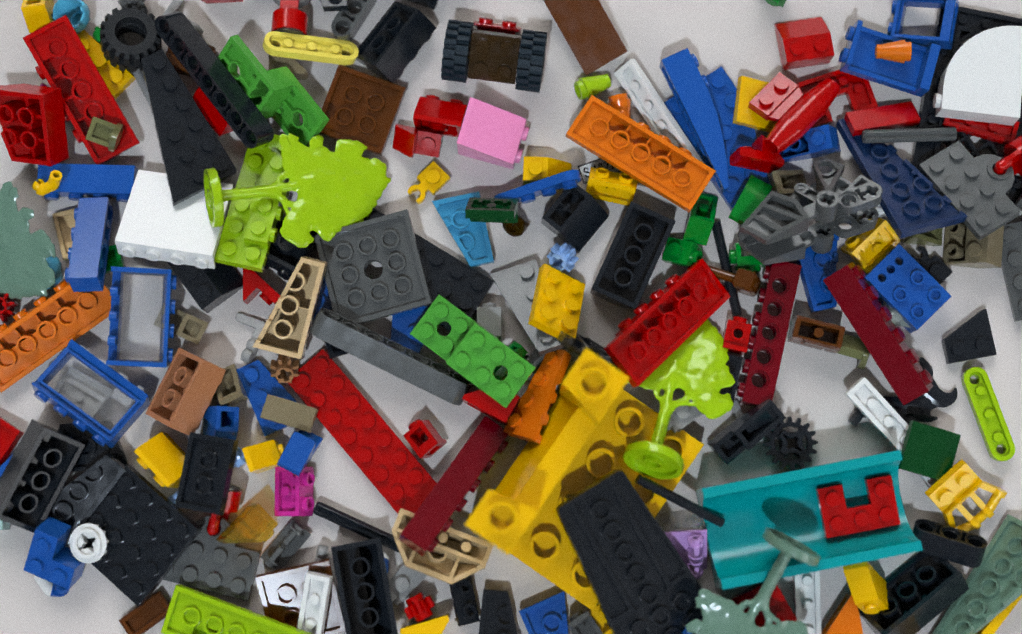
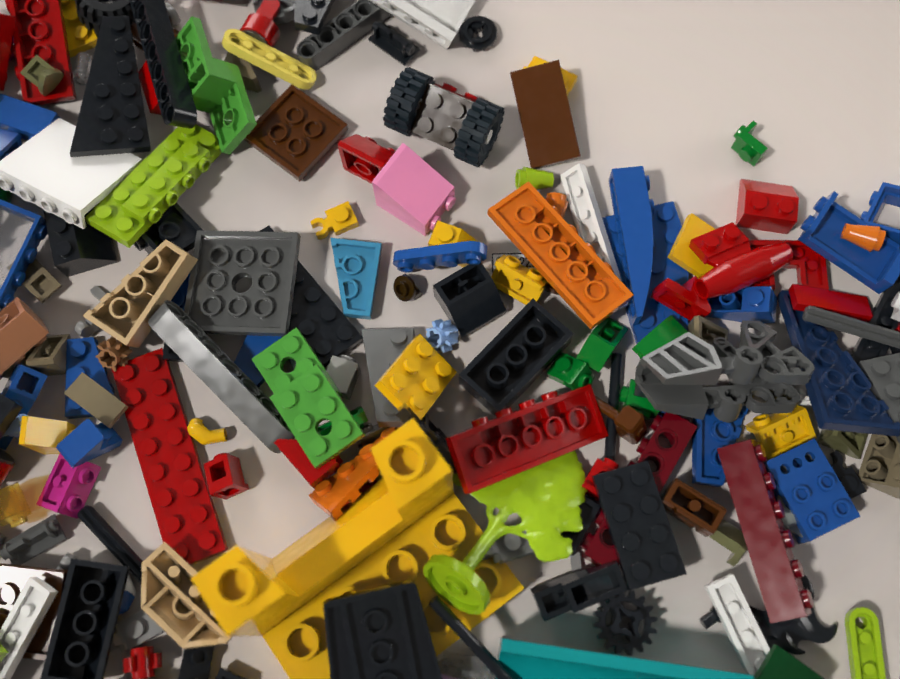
camera: 20 degrees right, 10 degrees down
(135, 115) = (82, 68): none -> clear pin
(253, 285) = (118, 262): red slope -> none
(330, 186) = (228, 188): lime plant -> none
(389, 410) = (203, 435): none -> yellow arm
(395, 41) = (355, 81): black slope -> none
(417, 141) = (340, 178): red slope -> none
(453, 486) = (244, 527): dark red brick -> none
(492, 210) = (384, 262): dark green bracket -> none
(778, 363) = (638, 525): none -> black plate
(970, 340) = (867, 575): black wing -> none

